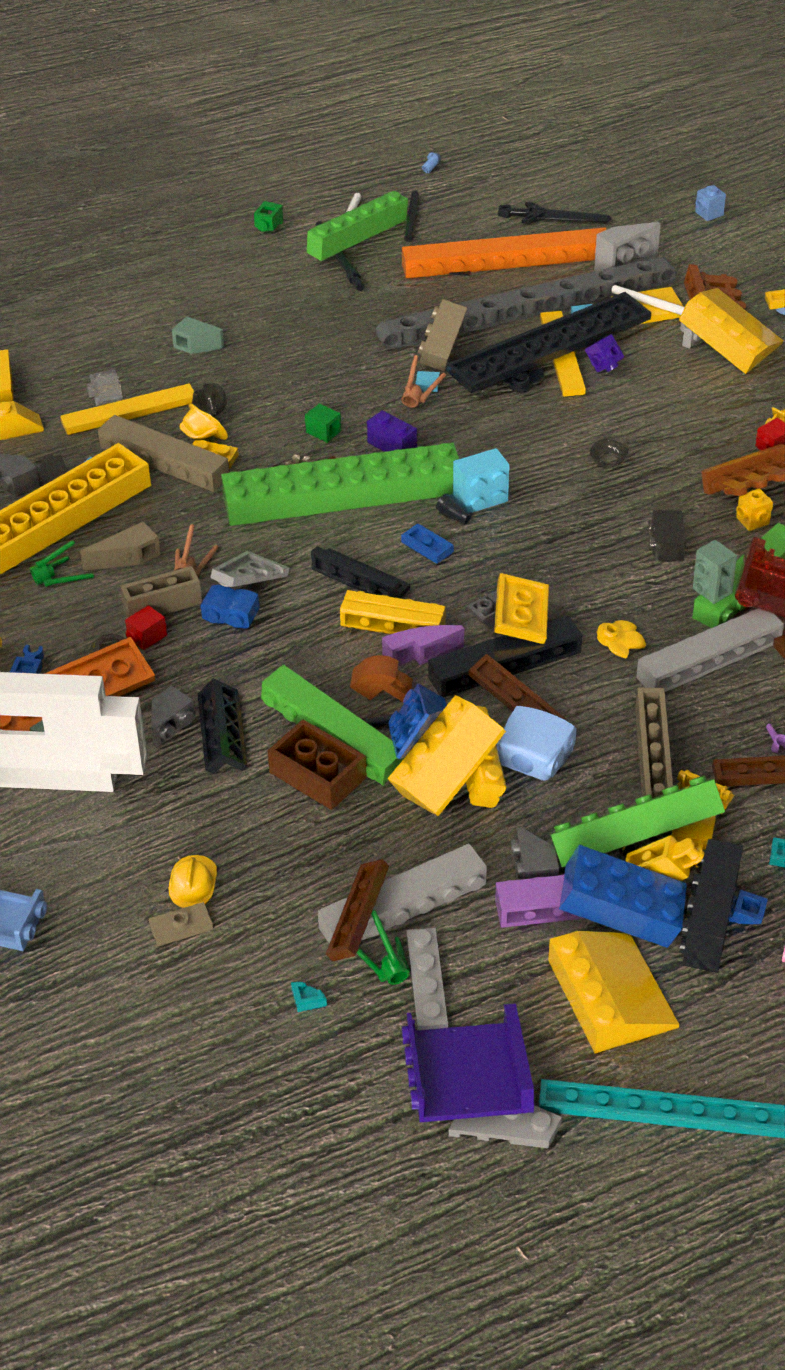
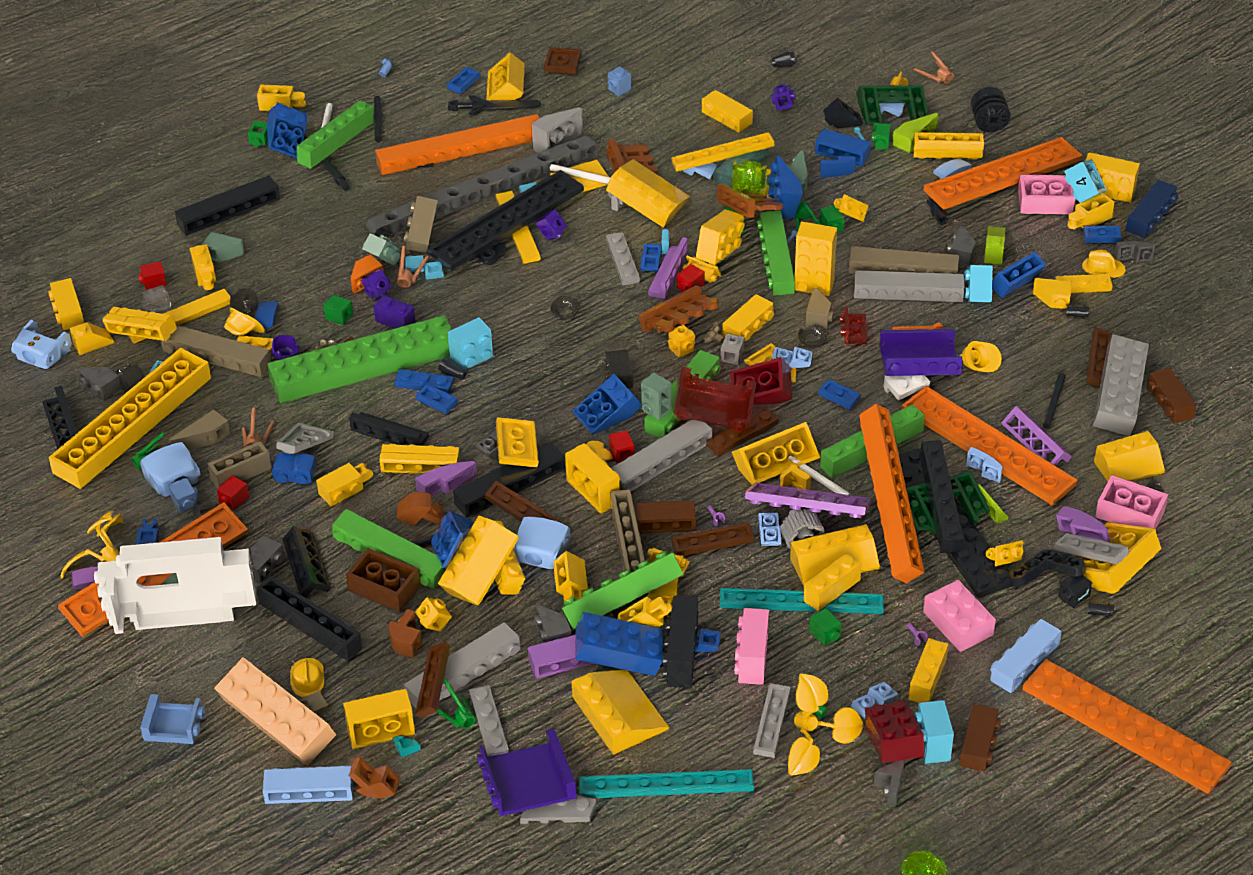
camera: 10 degrees left, 0 degrees up
(74, 588) = (169, 466): none -> light blue piece
(76, 410) = (140, 323): none -> yellow brick
(84, 622) = (183, 495): none -> medium blue brick
(106, 358) = (152, 275): none -> red brick
(138, 924) = (275, 711): none -> light nougat brick
(162, 1033) = (307, 785): none -> light blue brick
(169, 354) = (203, 266): none -> yellow brick
(210, 803) = (309, 618): none -> black brick
(213, 290) = (227, 205): none -> black brick
(234, 418) = (267, 313): none -> blue slope
(247, 457) = (284, 347): none -> dark purple hair
(252, 1043) = (373, 782): none -> dark orange brick
(275, 953) = (379, 718): none -> yellow brick
(289, 632) = (343, 483): none -> yellow brick
(299, 181) = (272, 94): none -> yellow brick
(299, 212) = (286, 129): none -> blue slope
(330, 842) = (403, 635): none -> dark orange brick
(365, 384) = (362, 269): none -> orange slope
(375, 398) = (376, 284): none -> dark purple brick
(375, 819) = (433, 614): none -> yellow brick
(389, 357) = (382, 249): none -> sand green brick
(405, 518) = (417, 380): none -> blue plate
(449, 391) = (433, 270): none -> medium azure tile
(521, 184) = (463, 80): none -> blue plate
(568, 792) = (570, 575): none -> yellow brick
(573, 187) = (506, 79): none -> yellow slope
(614, 665) = (591, 477): none -> yellow brick
(643, 175) = (562, 60): none -> reddish brown plate
(647, 578) = (607, 406): none -> blue slope
(659, 631) = (621, 446): none -> red brick
(689, 404) = (622, 259): none -> light grey plate
(708, 731) = (665, 517): none -> reddish brown brick
(726, 406) = (651, 257): none -> blue slope
(746, 389) = (665, 241): none -> medium azure tile
(747, 423) = (669, 269): none -> medium lavender fence

